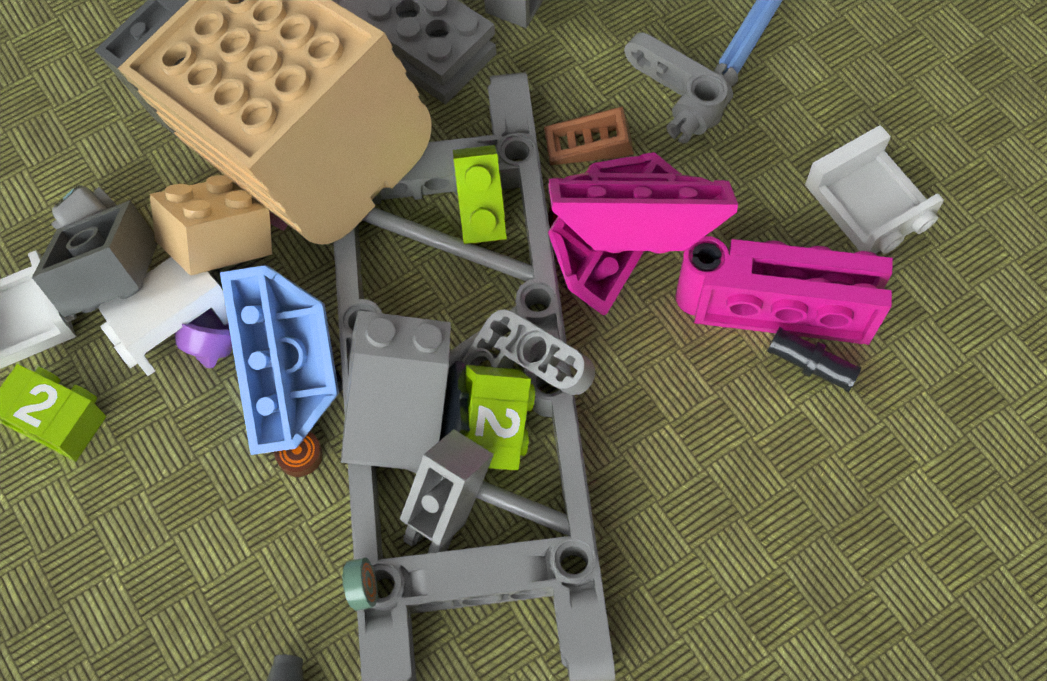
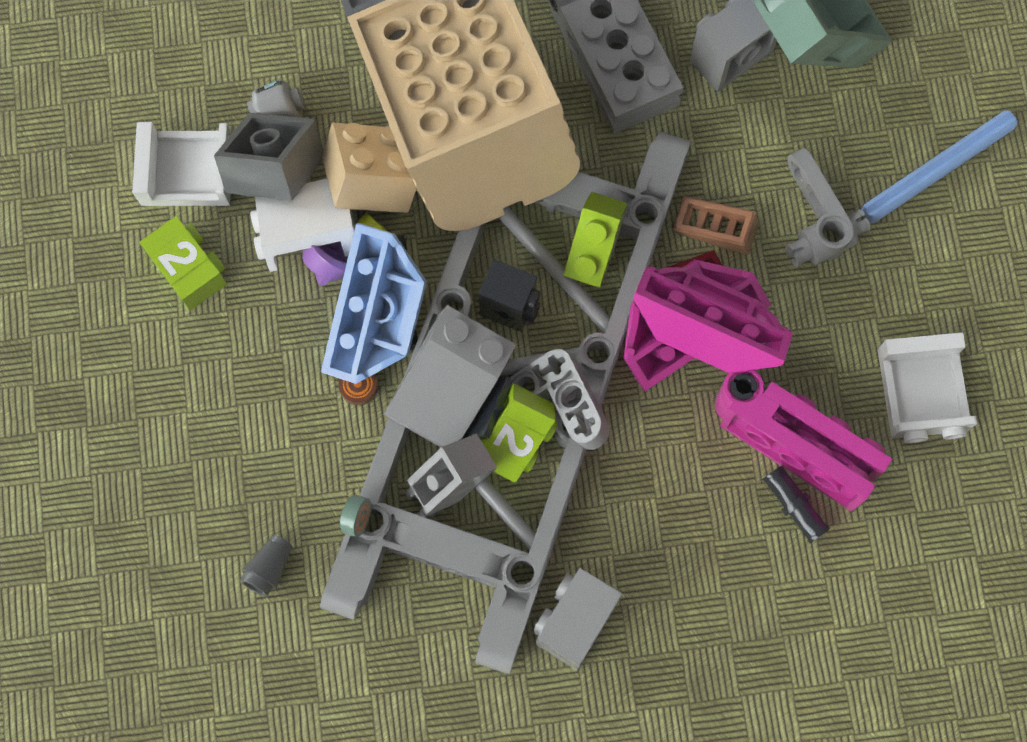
camera: 25 degrees right, 10 degrees up
(418, 282) = (509, 296): none -> black brick
(662, 579) = (577, 619): none -> light grey brick

